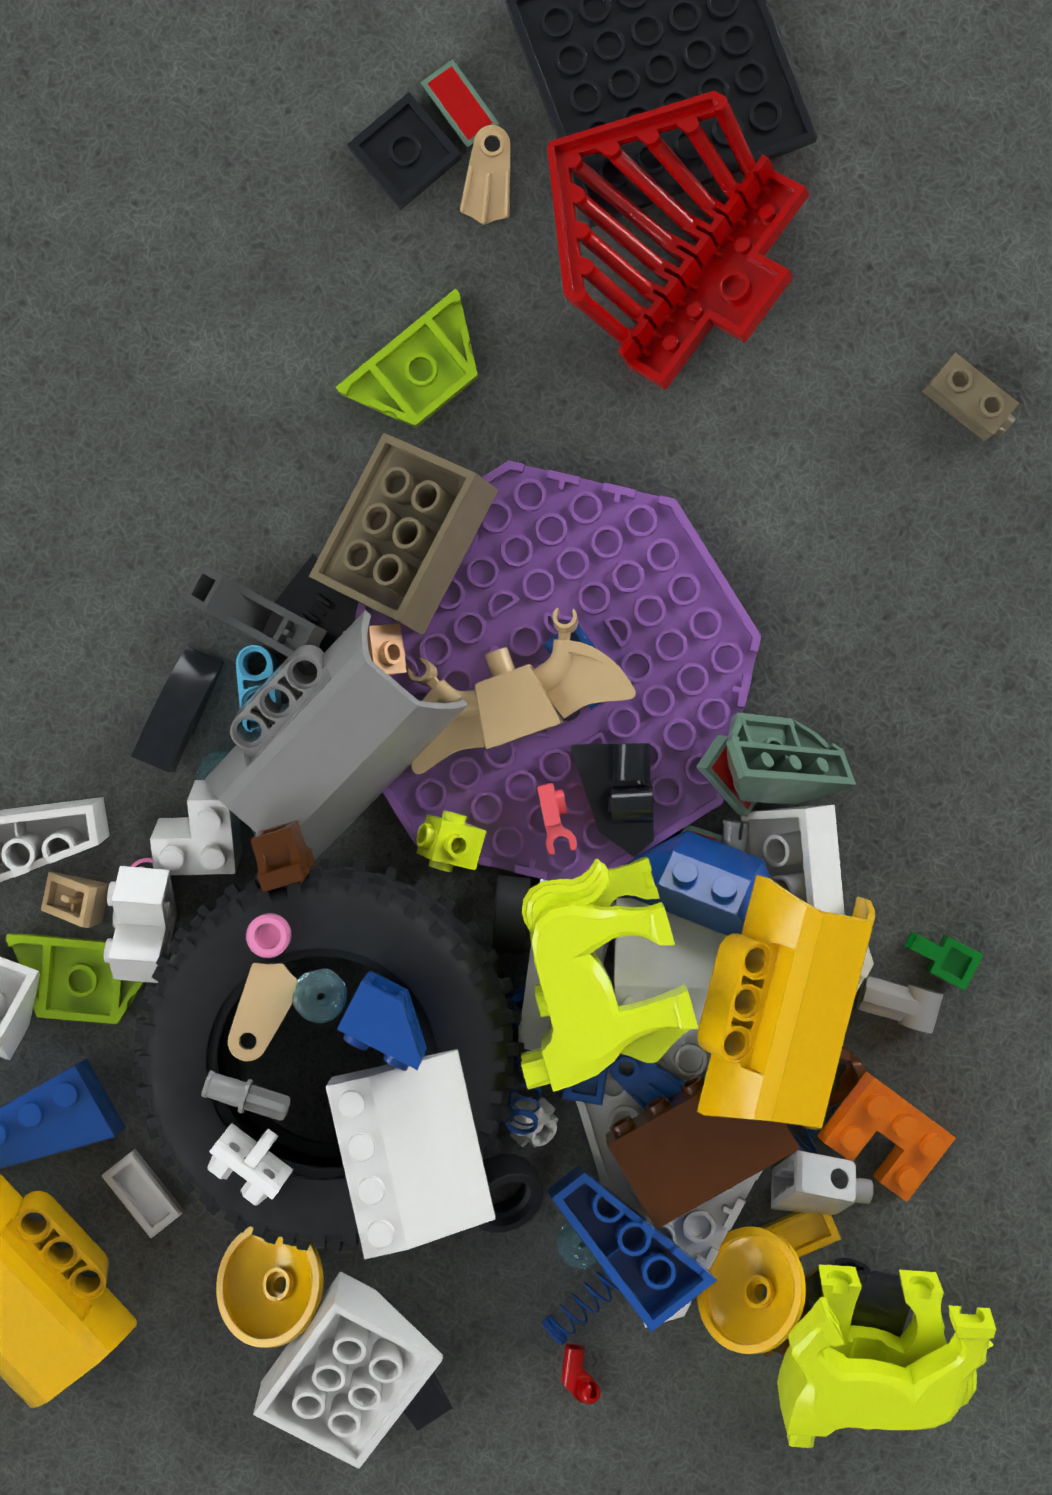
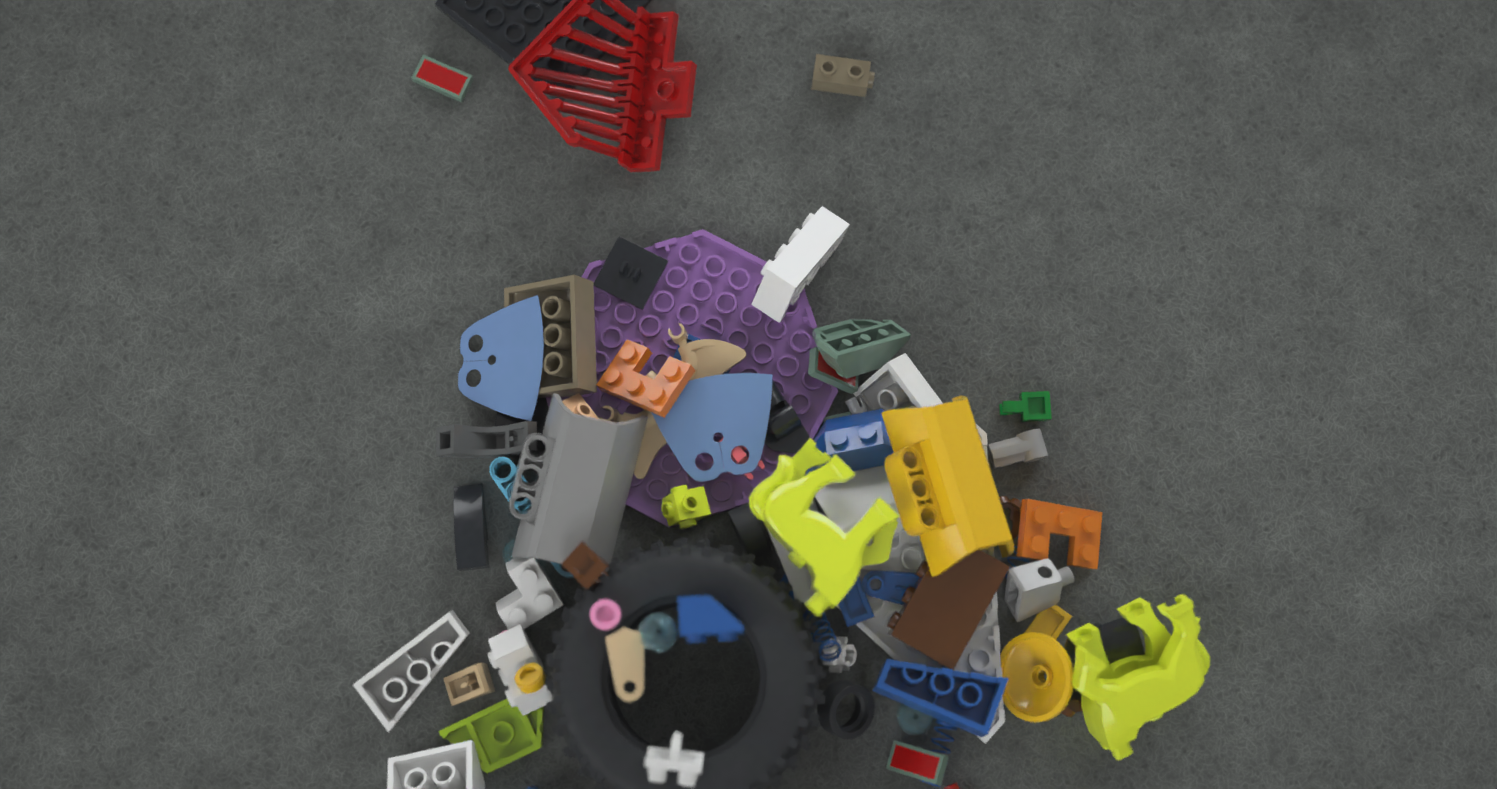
camera: 30 degrees left, 10 degrees down
(143, 945) = (530, 678): none -> yellow tile
(246, 1096) = (648, 722): light grey axle -> none
(361, 511) = (518, 344): none -> medium blue piece
(404, 151) = (424, 121): black plate -> none
(410, 1153) = (770, 695): white slope -> none
(418, 367) = (503, 240): lime wing -> none
(488, 178) = (483, 110): tan piece -> none
(488, 685) = (655, 395): none -> orange plate
(538, 733) = (724, 404): none -> medium blue piece
(550, 1303) = (917, 762): none -> tile
(552, 503) = (630, 273): none -> black piece
(770, 614) = (798, 262): none -> white wedge

